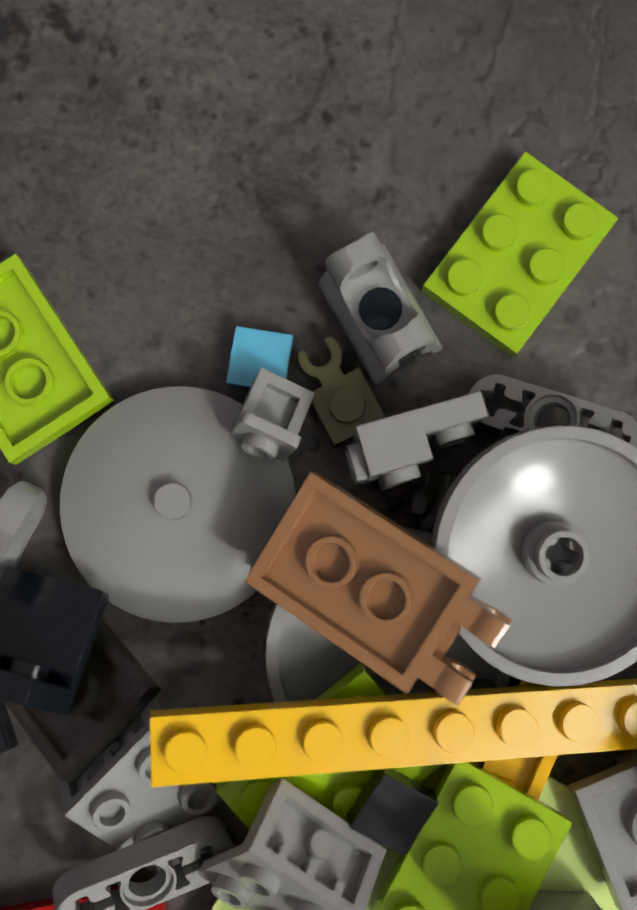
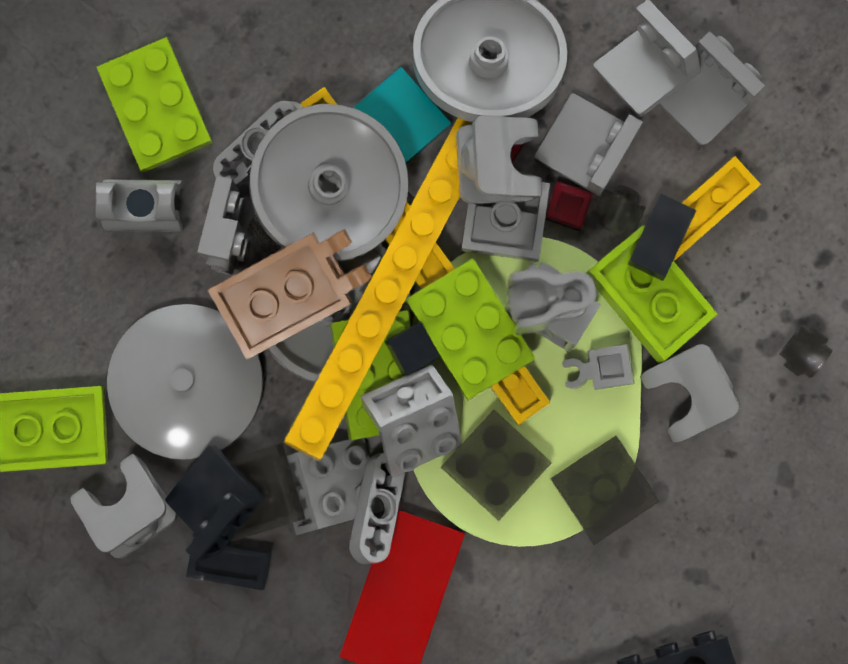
camera: 60 degrees left, 0 degrees up
(255, 350) = (129, 289): medium azure tile -> none
(271, 417) = (166, 298): light grey bracket -> none
(341, 399) = (178, 255): olive plate -> none

